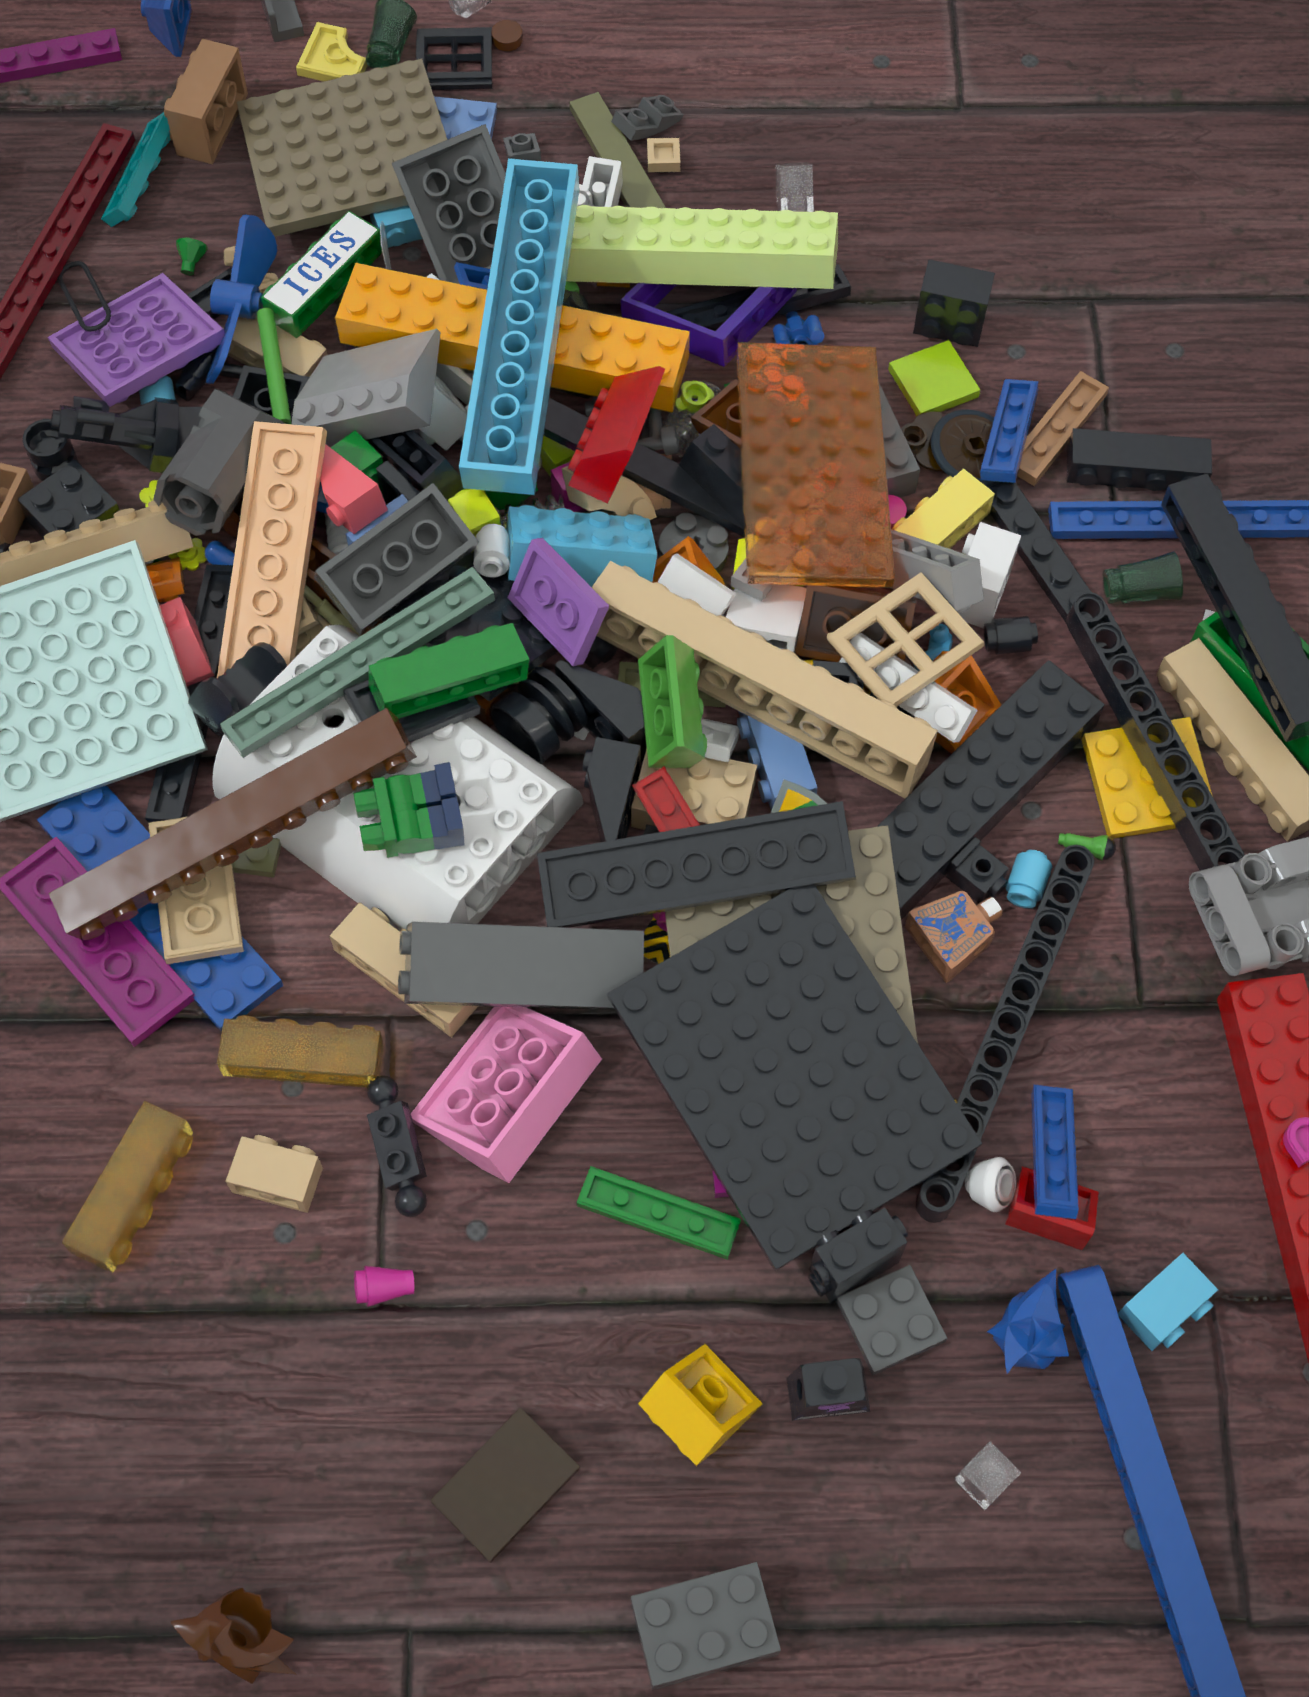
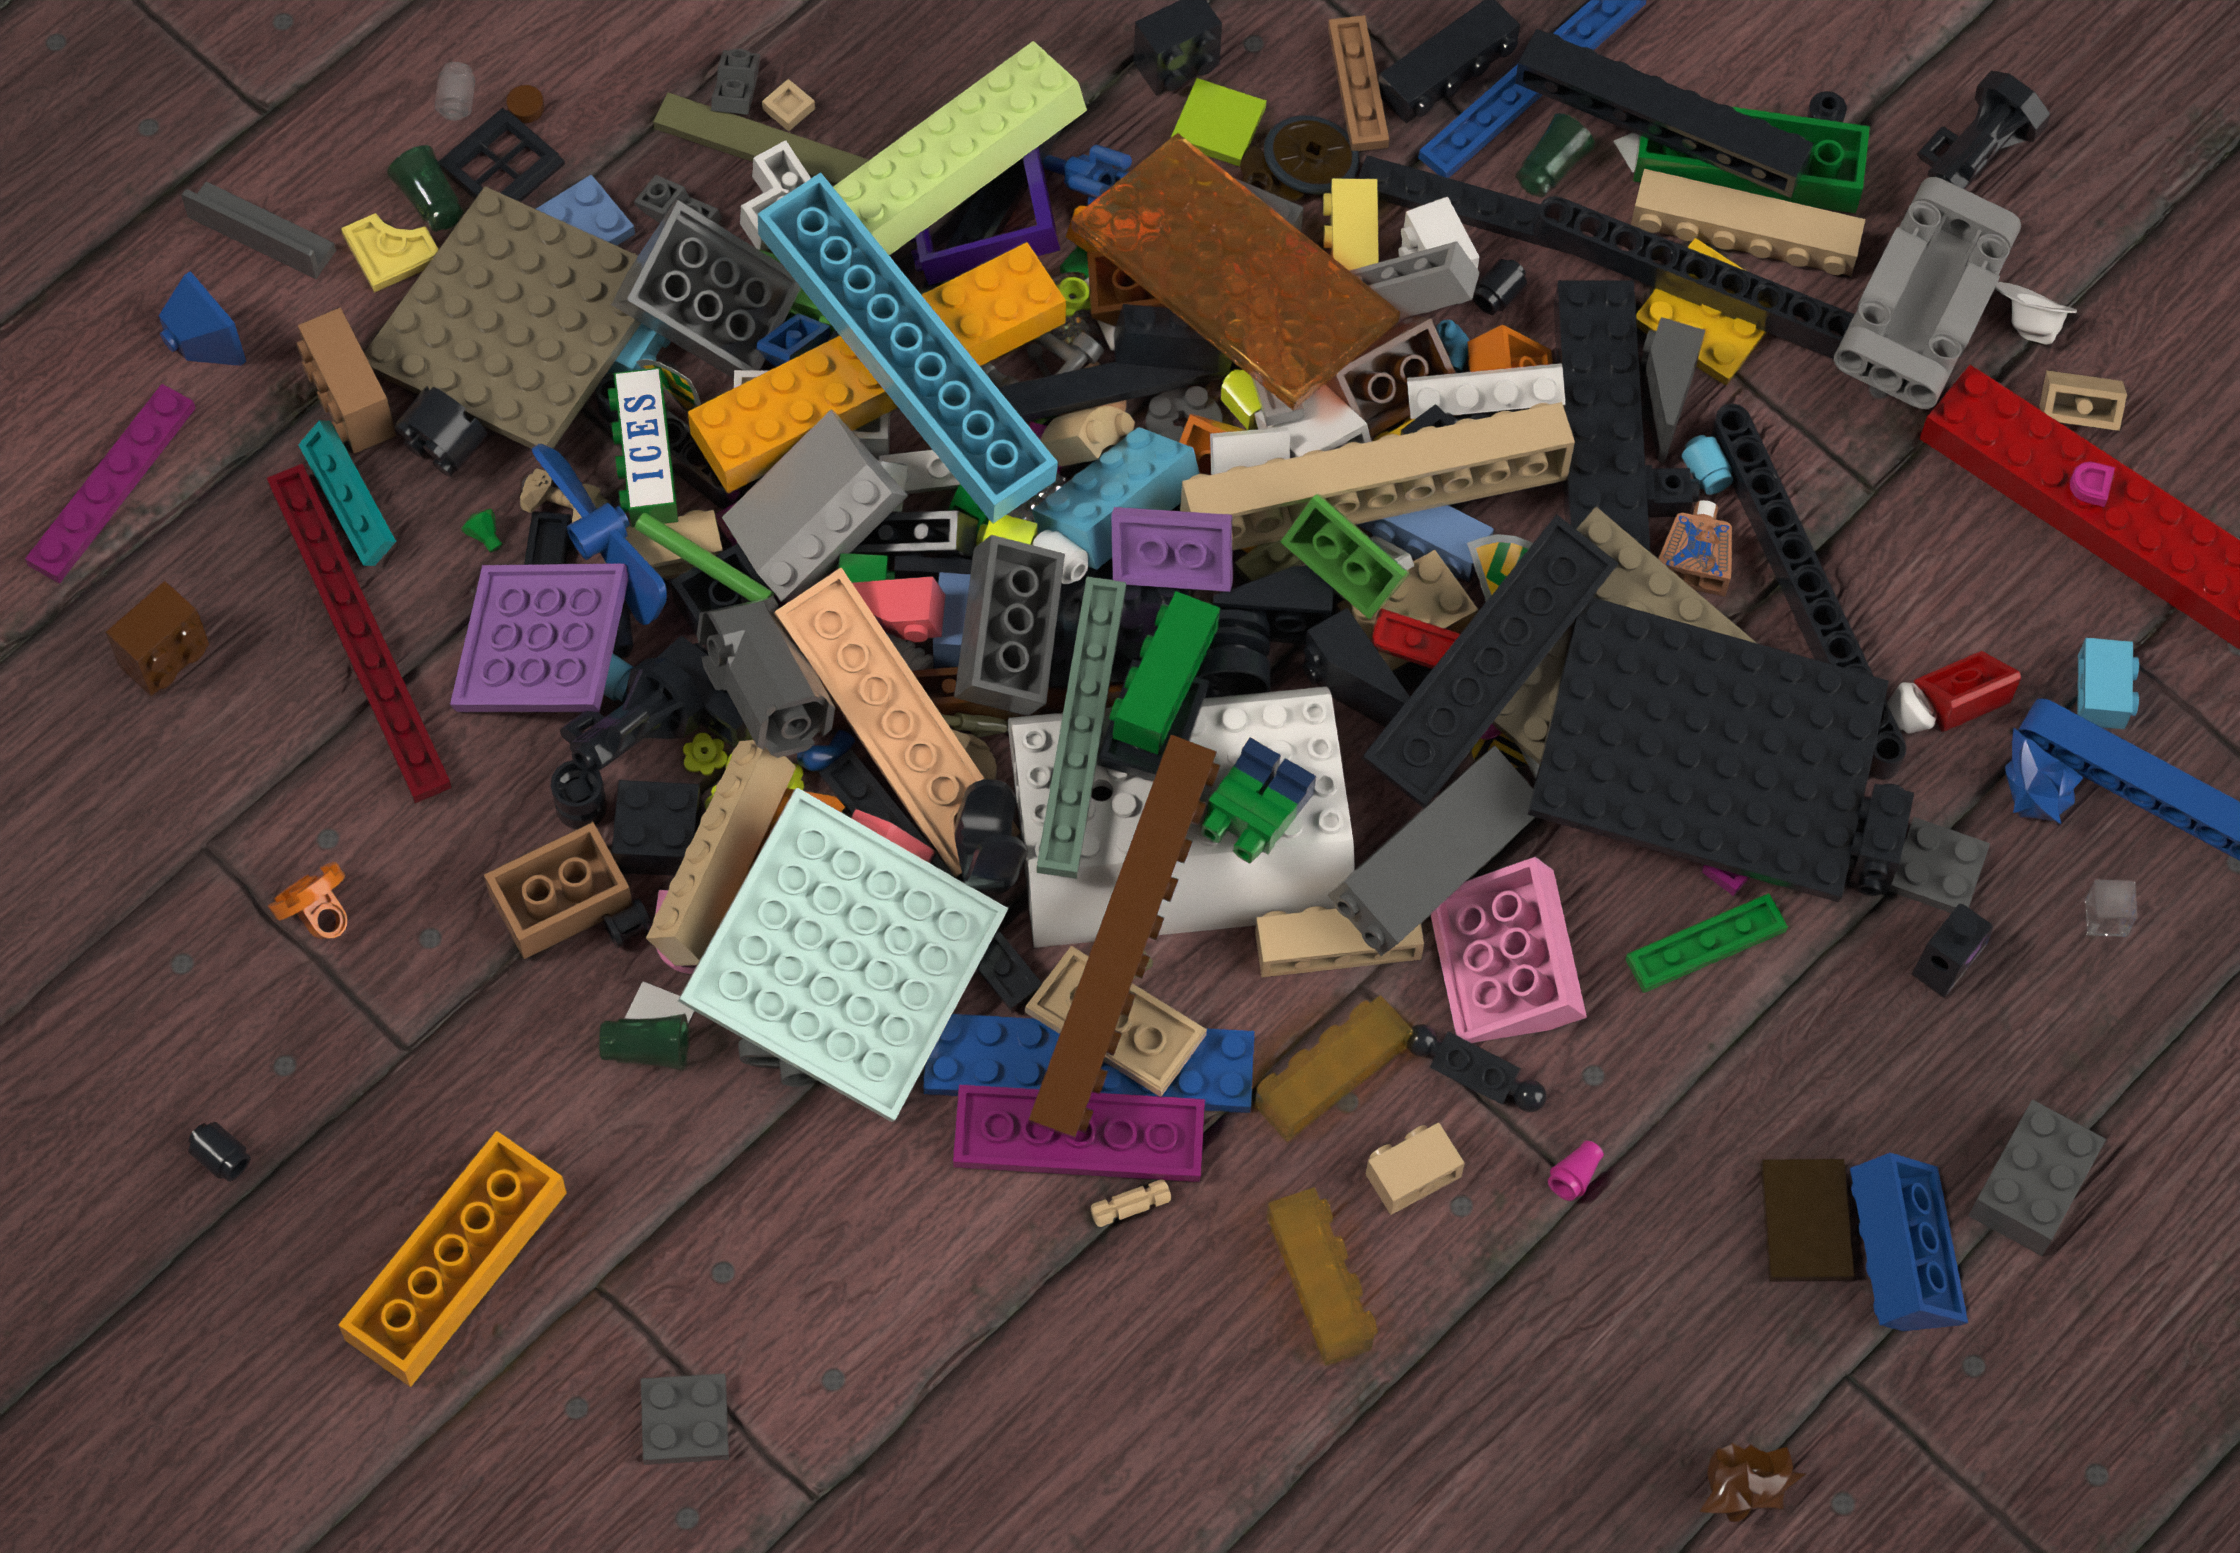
camera: 45 degrees left, 0 degrees up
(74, 1017) = (1130, 1203): none -> tan axle
(97, 291) = (445, 628): black piece -> none
(225, 172) = (440, 429): none -> black brick
(554, 1579) = (1908, 1244): none -> blue slope
(613, 432) = (1069, 371): red slope -> none
(699, 1404) = (1879, 1042): yellow slope -> none
(794, 186) = (940, 52): clear slope -> none
(905, 640) = (1457, 354): tan window -> none
(1009, 431) = (1328, 116): blue tile -> none
(1054, 1152) = (1933, 645): blue tile -> none
(1064, 792) = (1669, 368): none -> dark grey slope
(1101, 847) = (1729, 393): bright green piece -> none

